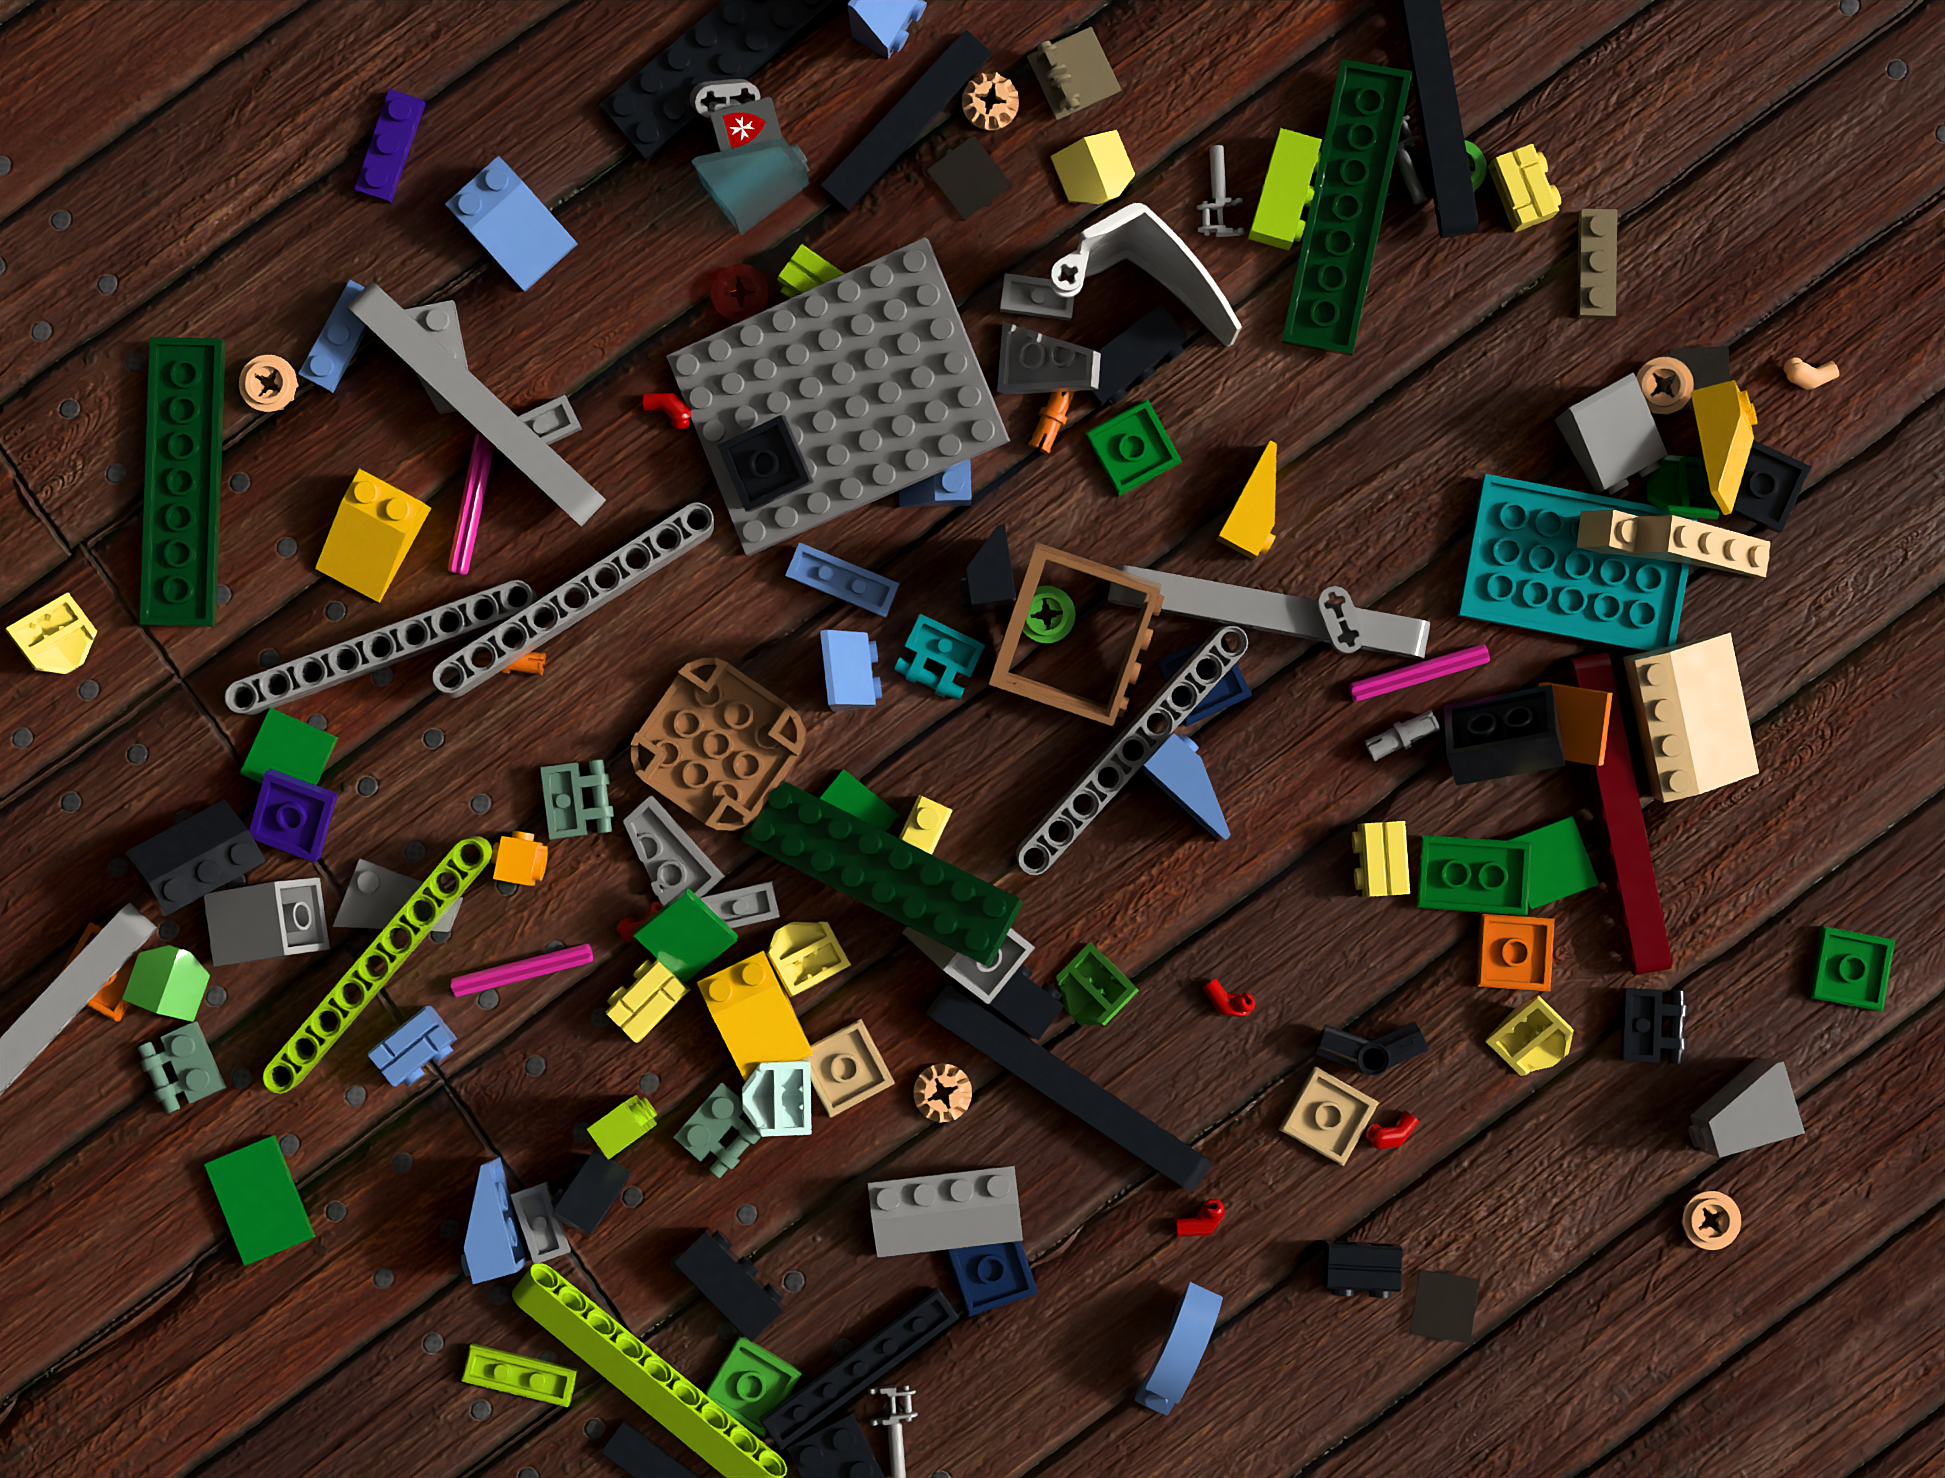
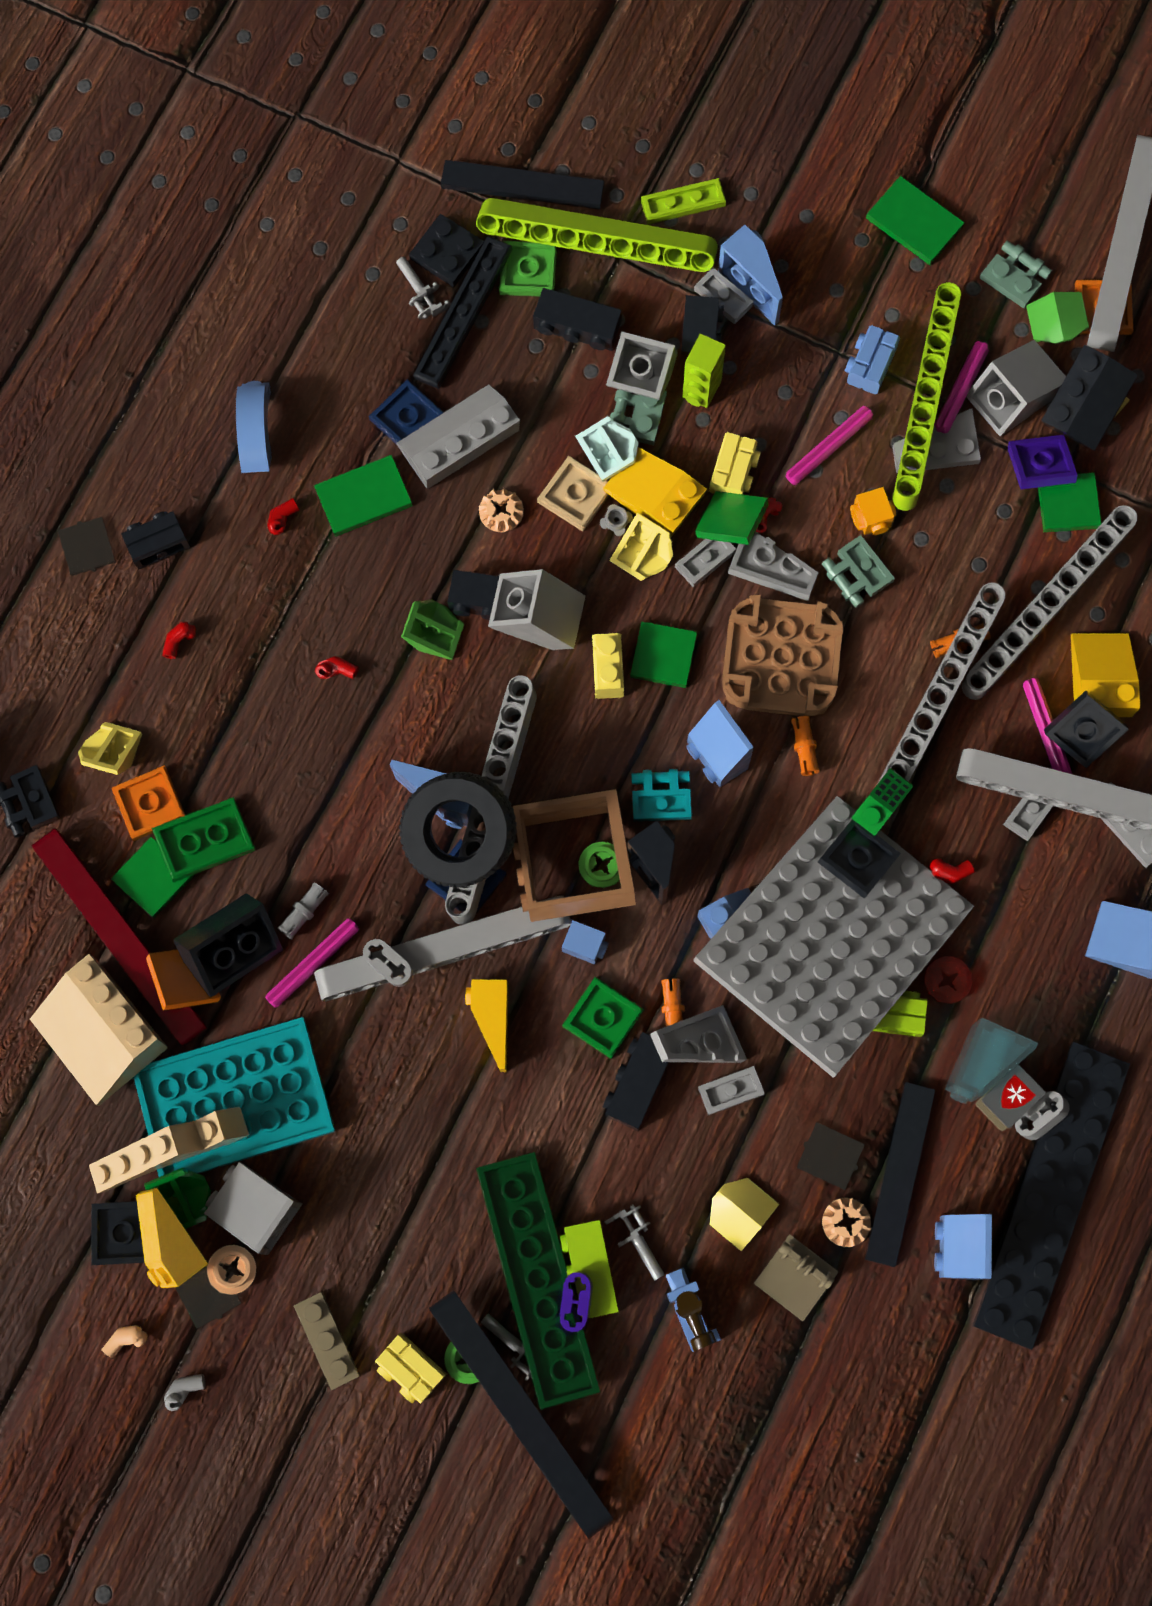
camera: 160 degrees right, 10 degrees down
(329, 957) = (961, 387): none -> dark pink axle
(432, 477) = (1086, 729): none -> black plate
(689, 1177) = (642, 366): none -> light grey slope
(707, 508) = (882, 801): none -> green slope
(749, 629) = (805, 745): none -> orange pin
(813, 1019) = (613, 512): none -> light grey plate
(842, 580) = (759, 813): medium blue plate -> none
(884, 872) = (618, 619): dark green plate -> none
(1068, 1087) = (410, 553): black beam -> none
(1093, 1196) = (363, 495): none -> green tile
(1111, 535) = (585, 942): none -> medium blue brick
(1149, 243) = (672, 1160): white panel -> none
(1203, 106) = (688, 1311): none -> hips
(1220, 676) = (426, 854): none -> black tyre
(1326, 162) = (568, 1302): none -> dark purple beam
(1328, 1115) = (227, 628): tan tile -> none
(1349, 1049) = (234, 676): black piece -> none
(1382, 859) = (274, 816): light yellow brick -> none
(1773, 293) = (180, 1389): none -> light grey arm

